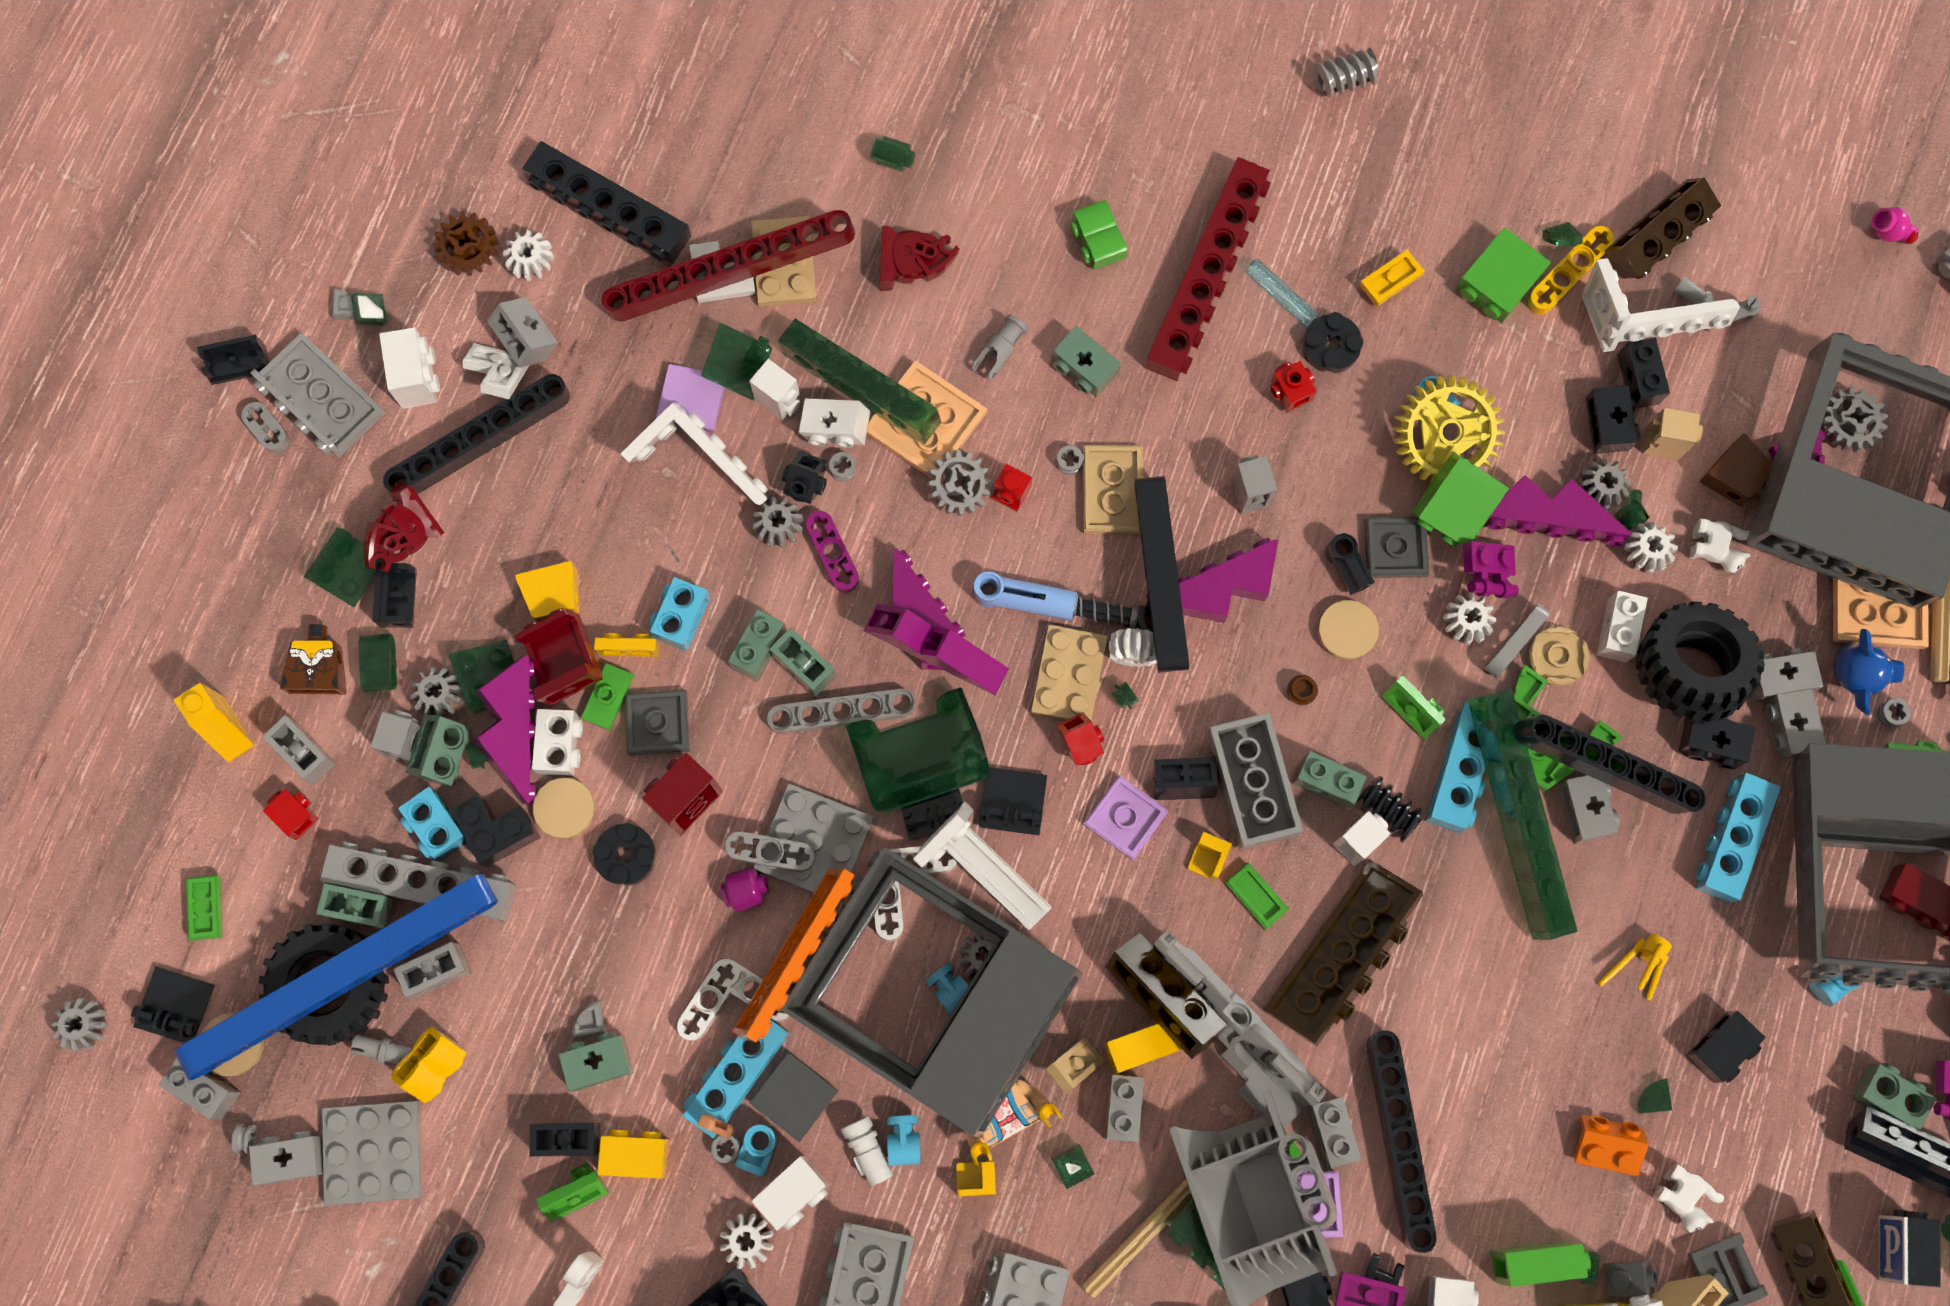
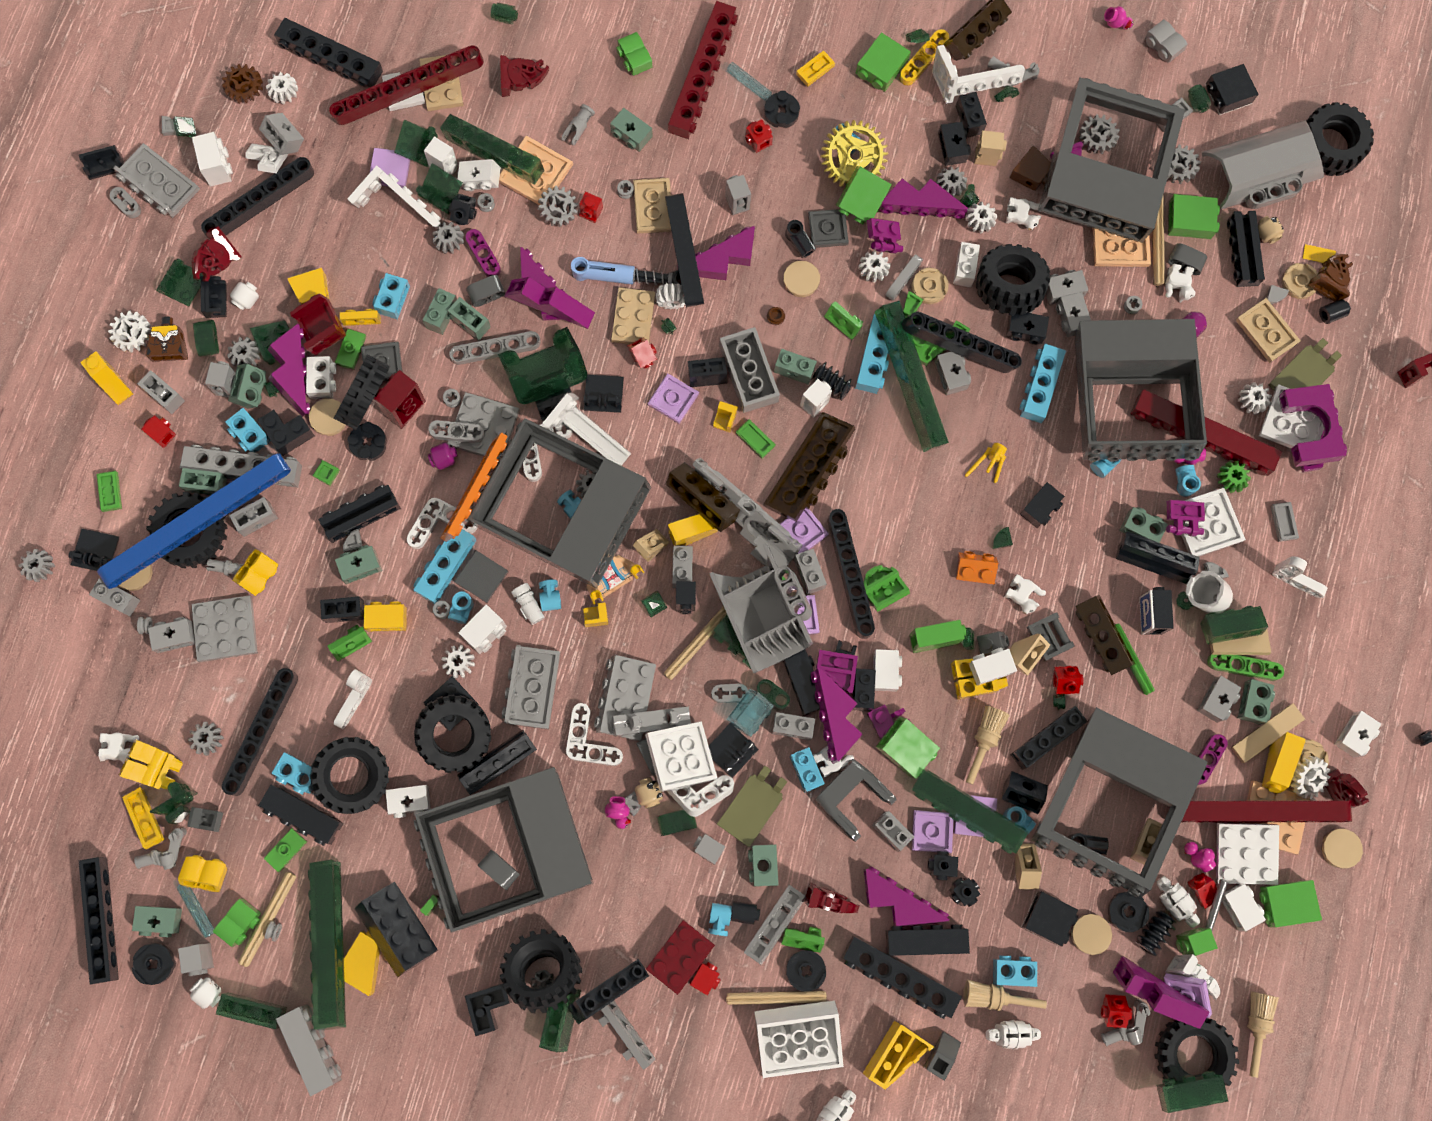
camera: 10 degrees left, 0 degrees up
(244, 638) = (121, 331): none -> white gear
(443, 596) = (244, 295): none -> white head
(554, 901) = (326, 472): none -> bright green tile
(603, 976) = (360, 513): none -> black brick
(622, 780) = (361, 392): none -> black tyre
(716, 1126) = (430, 591): nougat tile -> none
(761, 782) = (448, 393): none -> light grey bush
(770, 440) = (439, 188): none -> clear green hinge
(832, 615) = (485, 291): none -> dark grey beam
(1127, 1163) = (685, 596): none -> black brick
(1332, 1061) = (806, 530): none -> lavender tile
(1455, 1167) = (884, 586): none -> bright green slope
(1713, 338) = (1008, 91): none -> clear green tile
(1866, 670) = (1113, 278): blue piece -> none

